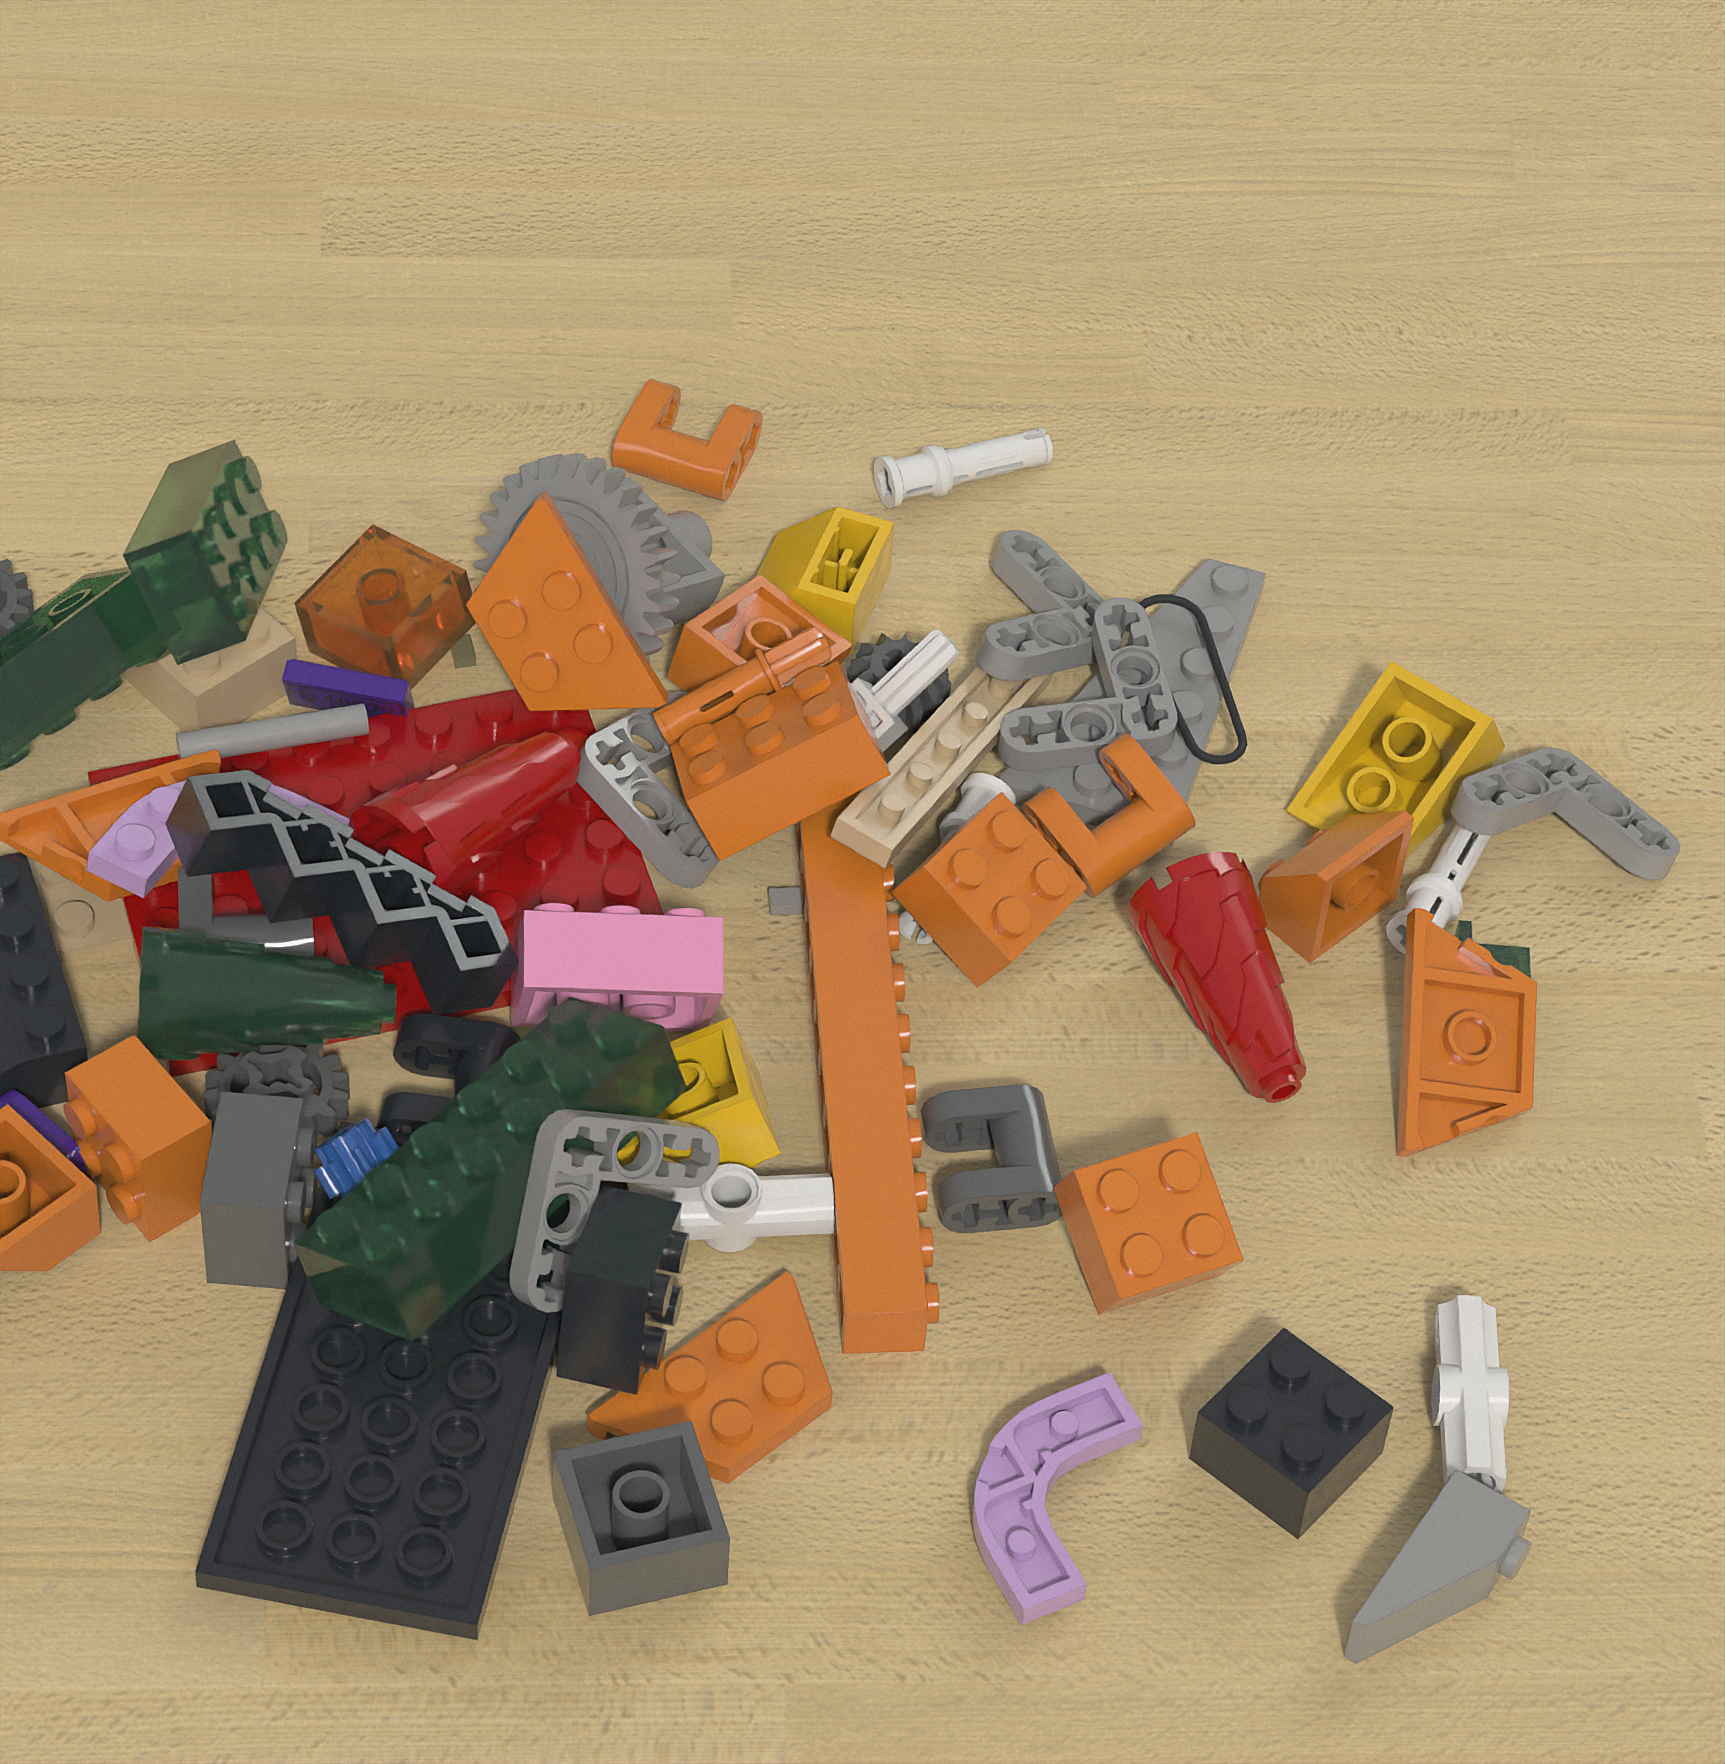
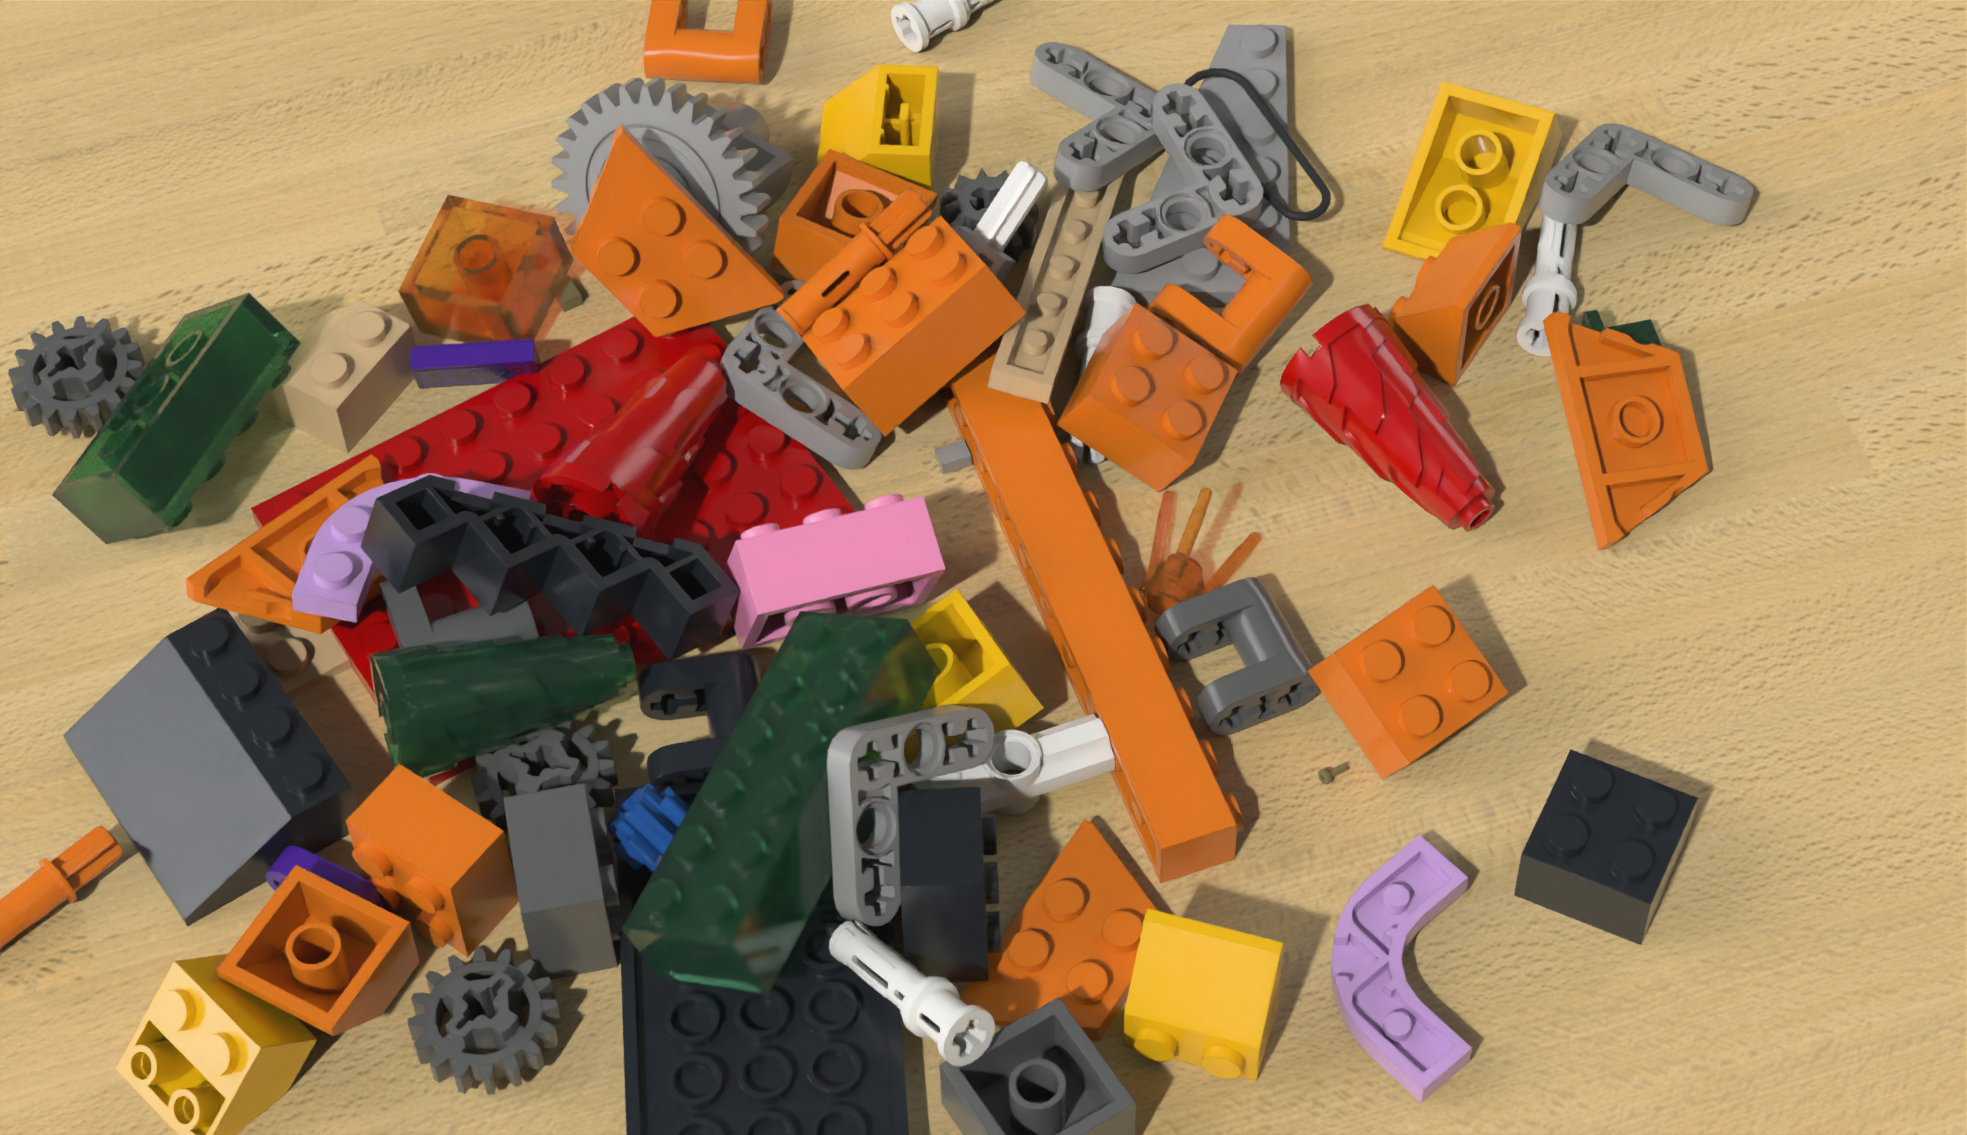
camera: 10 degrees left, 5 degrees up
(141, 1300) = (484, 1026): none -> dark grey gear
(206, 551) = (302, 264): clear green brick -> none
(276, 732) = (421, 423): light grey piece -> none
(560, 1390) = (927, 1004): none -> white pin
(837, 1461) = (1203, 995): none -> yellow slope
(962, 1066) = (1180, 575): none -> clear orange plant
(1042, 1296) = (1326, 775): none -> olive piece
(1444, 1566) = (1791, 933): light grey slope -> none
(1470, 1391) = (1753, 766): white piece -> none

